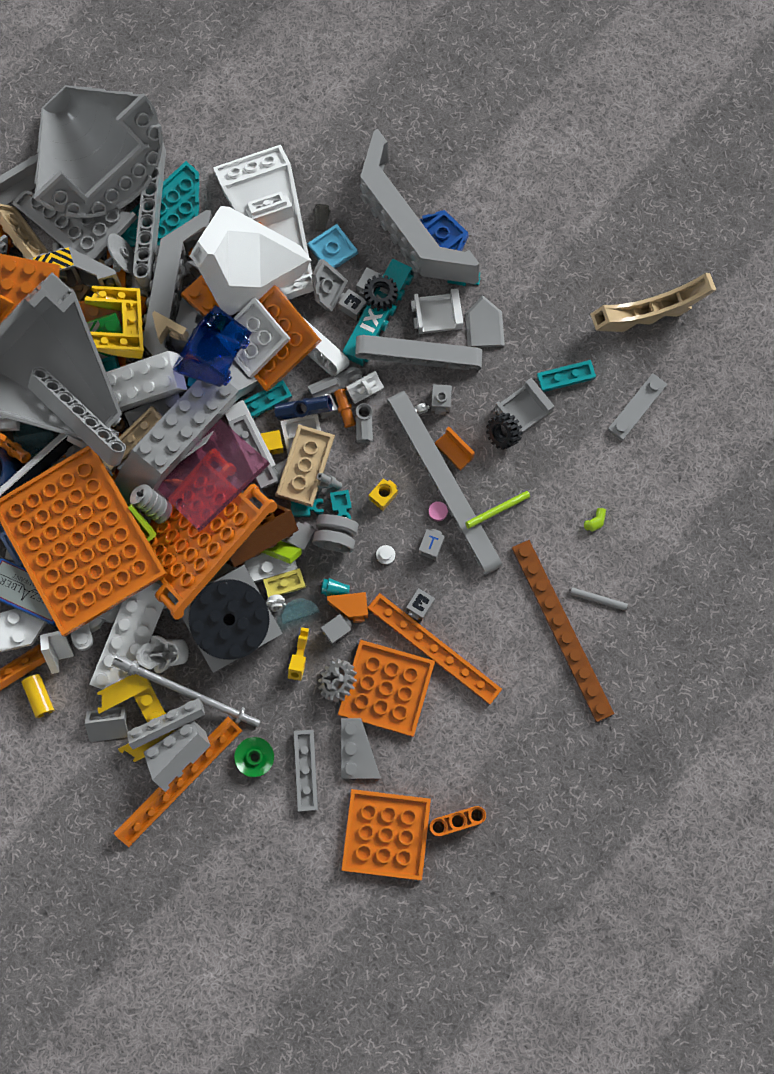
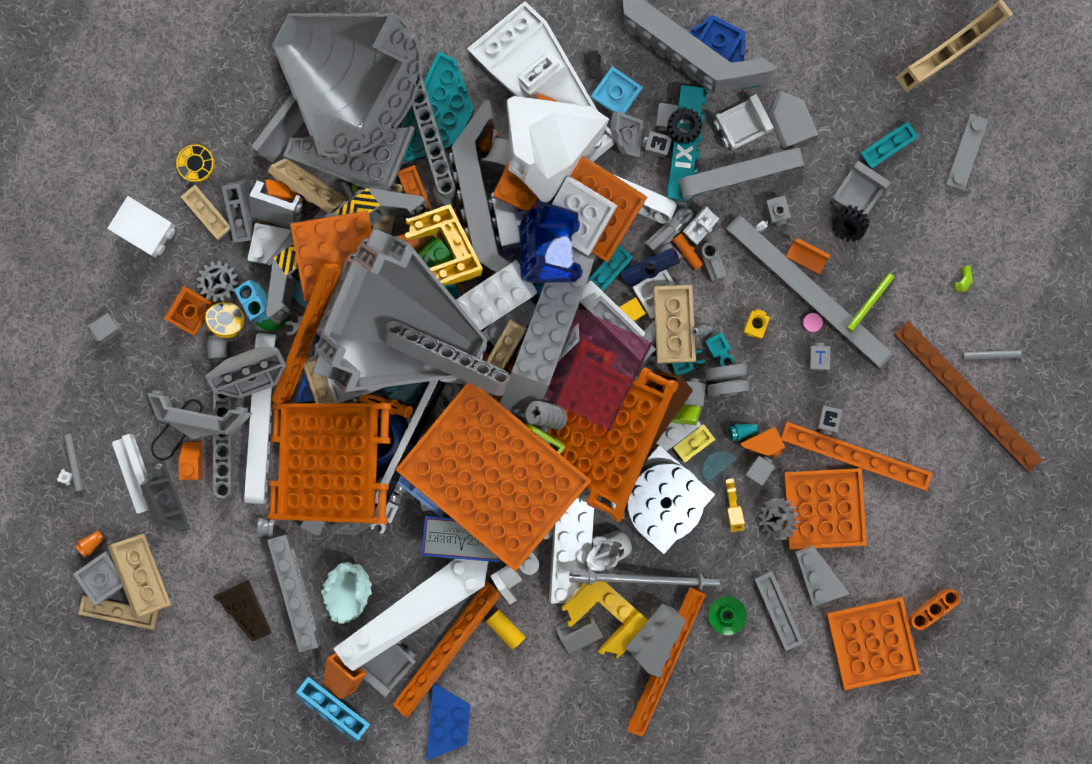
camera: 15 degrees left, 10 degrees up
(121, 254) = (417, 174): light grey shield -> none
(165, 723) = (637, 615): light grey plate -> none
(166, 326) = (491, 236): tan slope -> none
(276, 603) = (693, 464): white plate -> none
(385, 554) = (778, 382): white plate -> none

